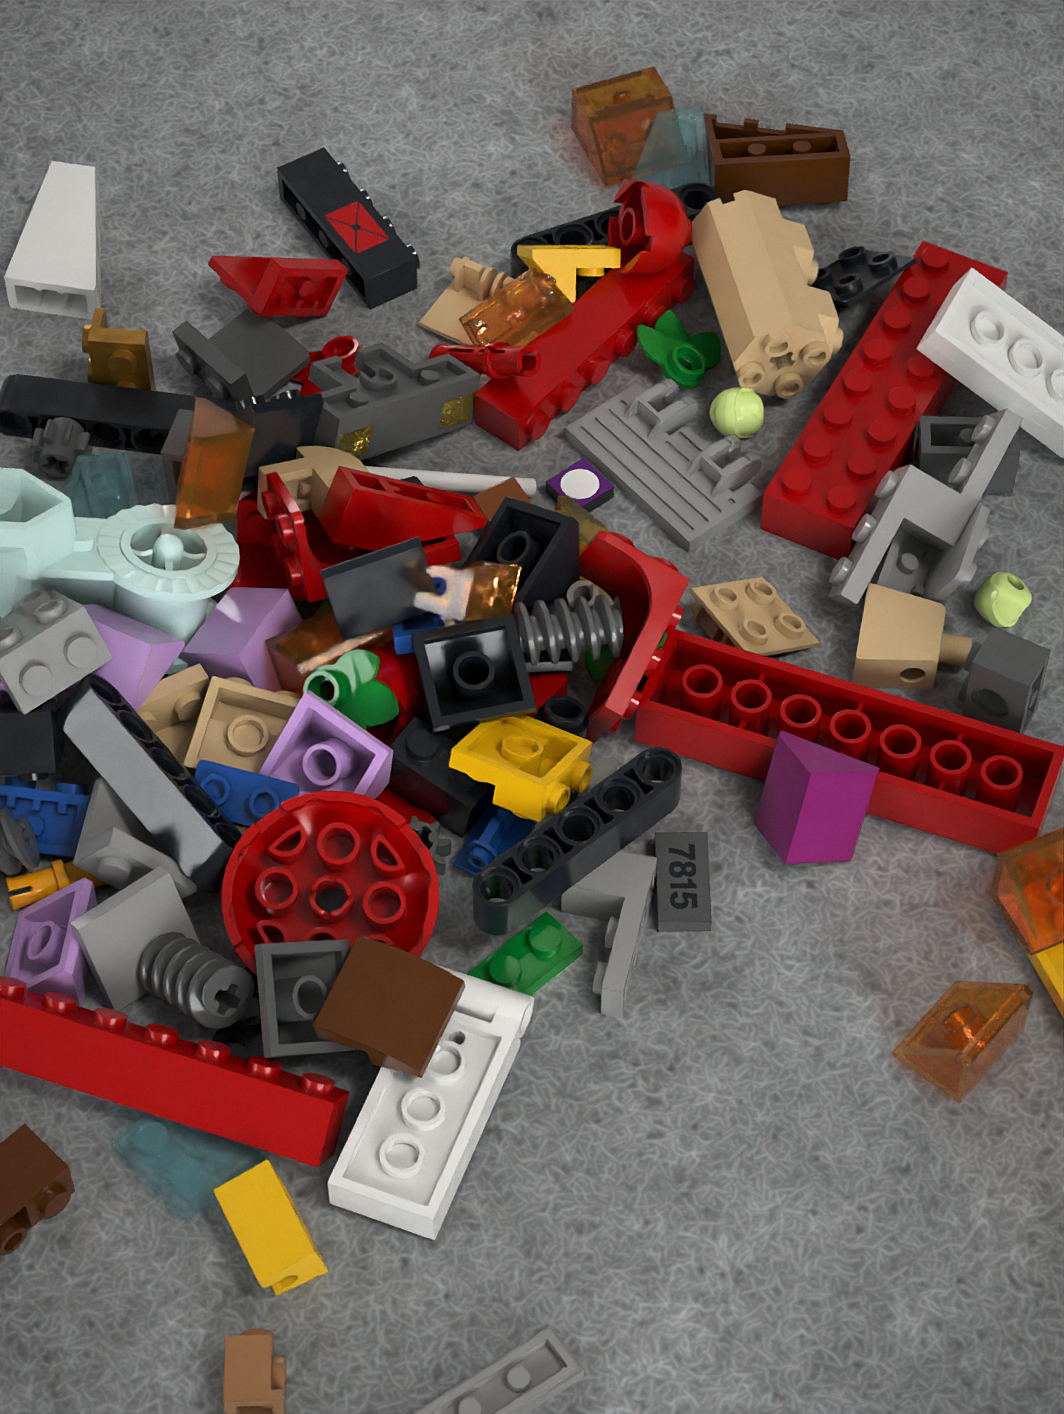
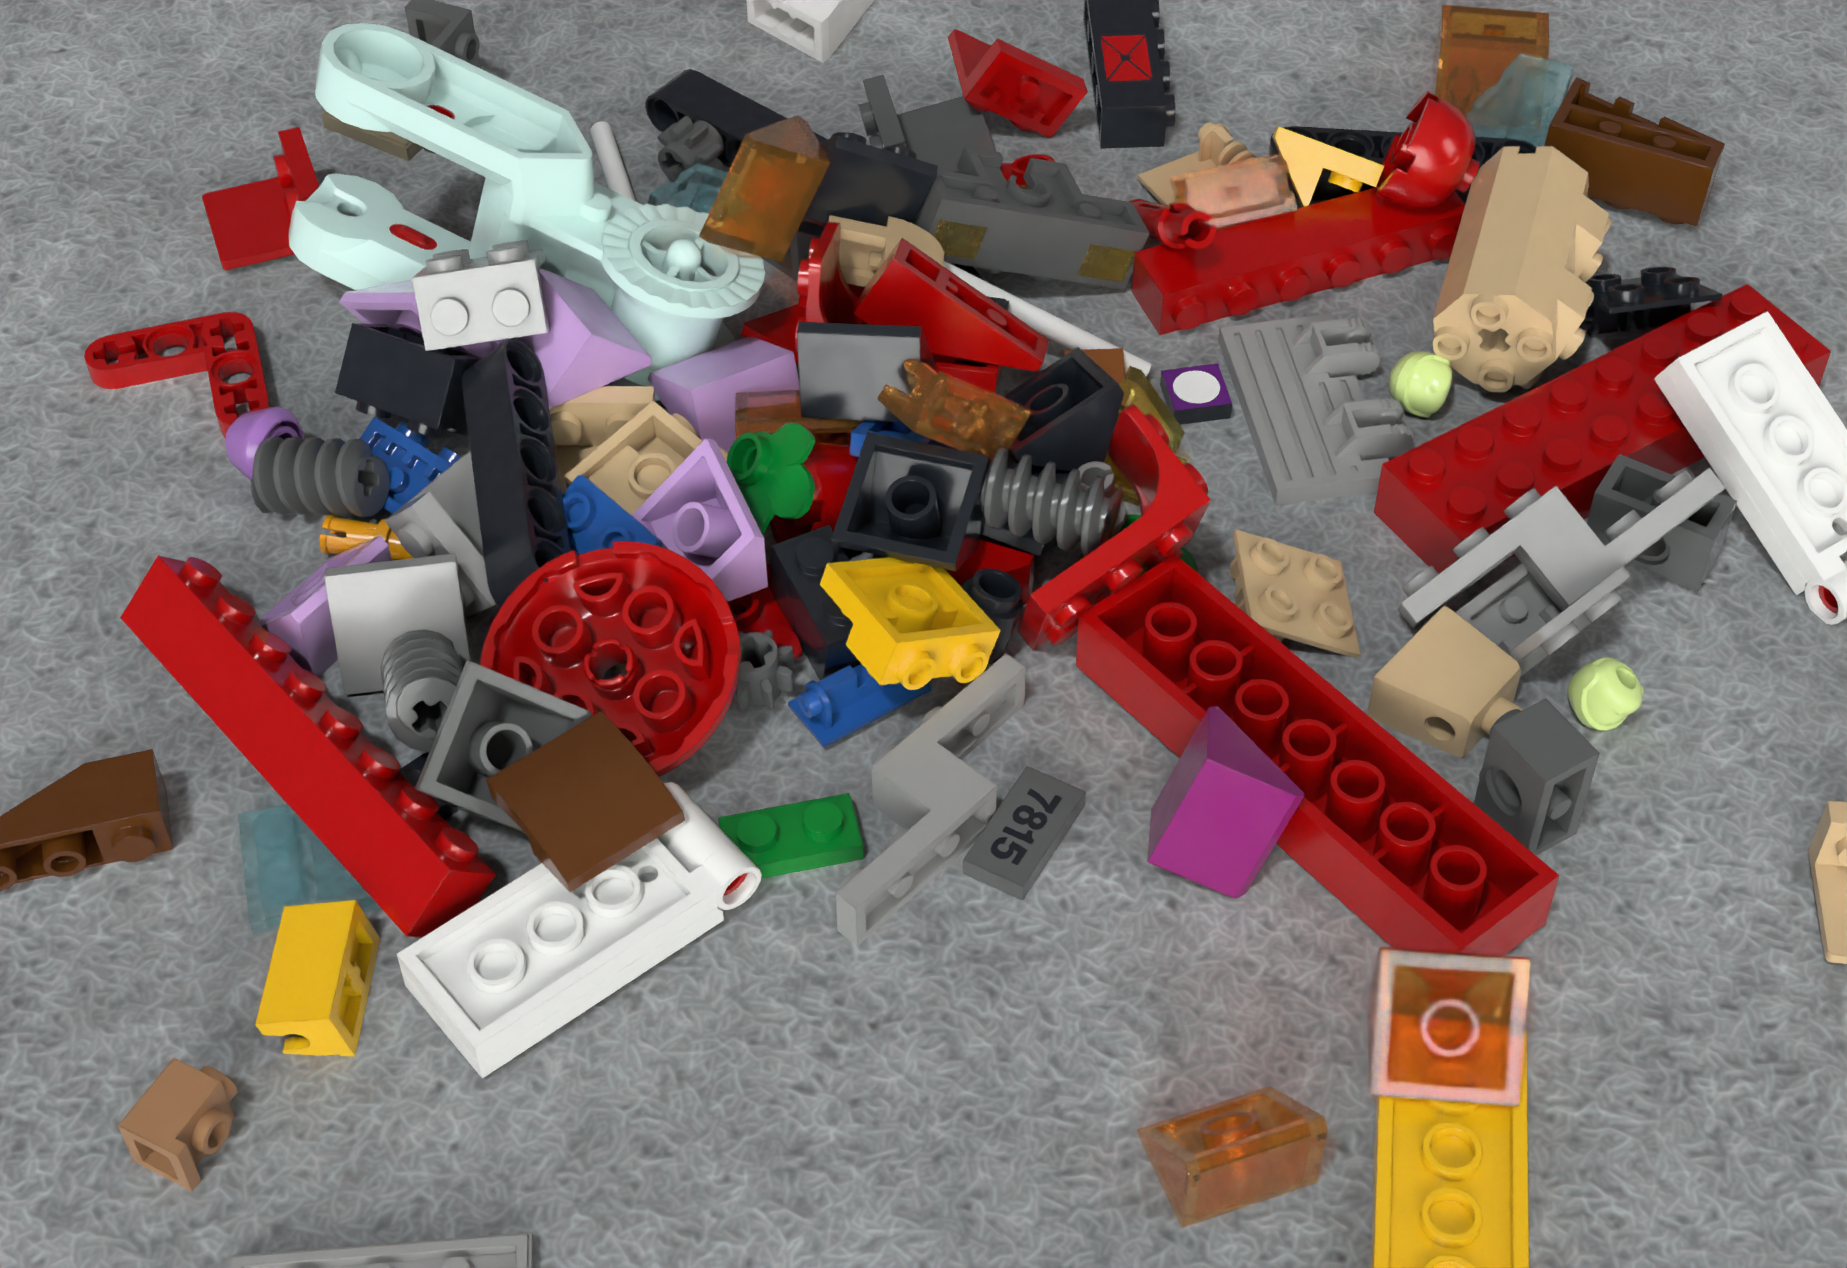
camera: 30 degrees right, 5 degrees down
(117, 355) = (795, 80): pearl gold bracket -> none
(570, 861) = (910, 722): black beam -> none
(677, 353) = (1394, 299): green plate -> none

